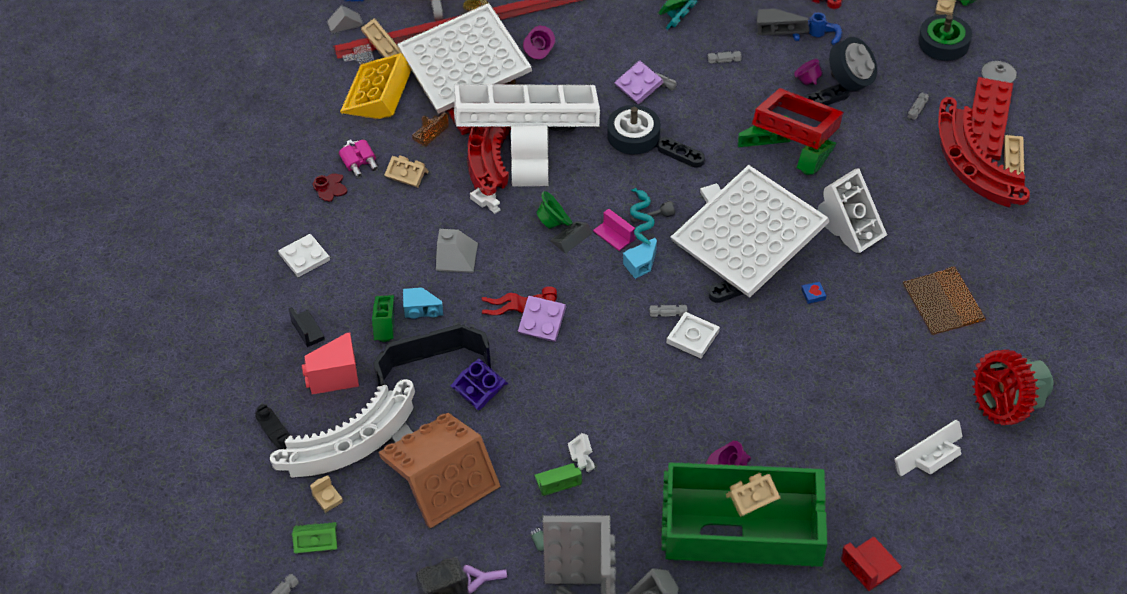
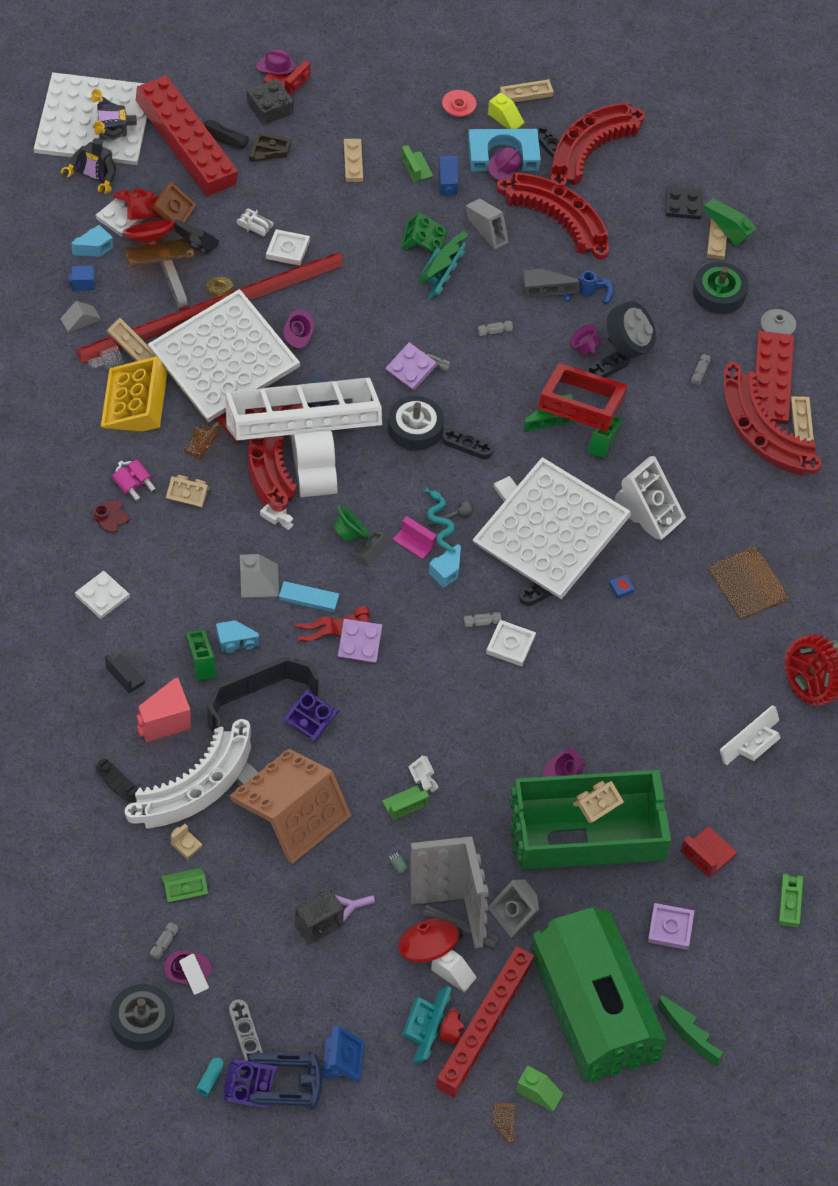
camera: 15 degrees left, 5 degrees up
(501, 274) = (309, 596): none -> medium azure tile

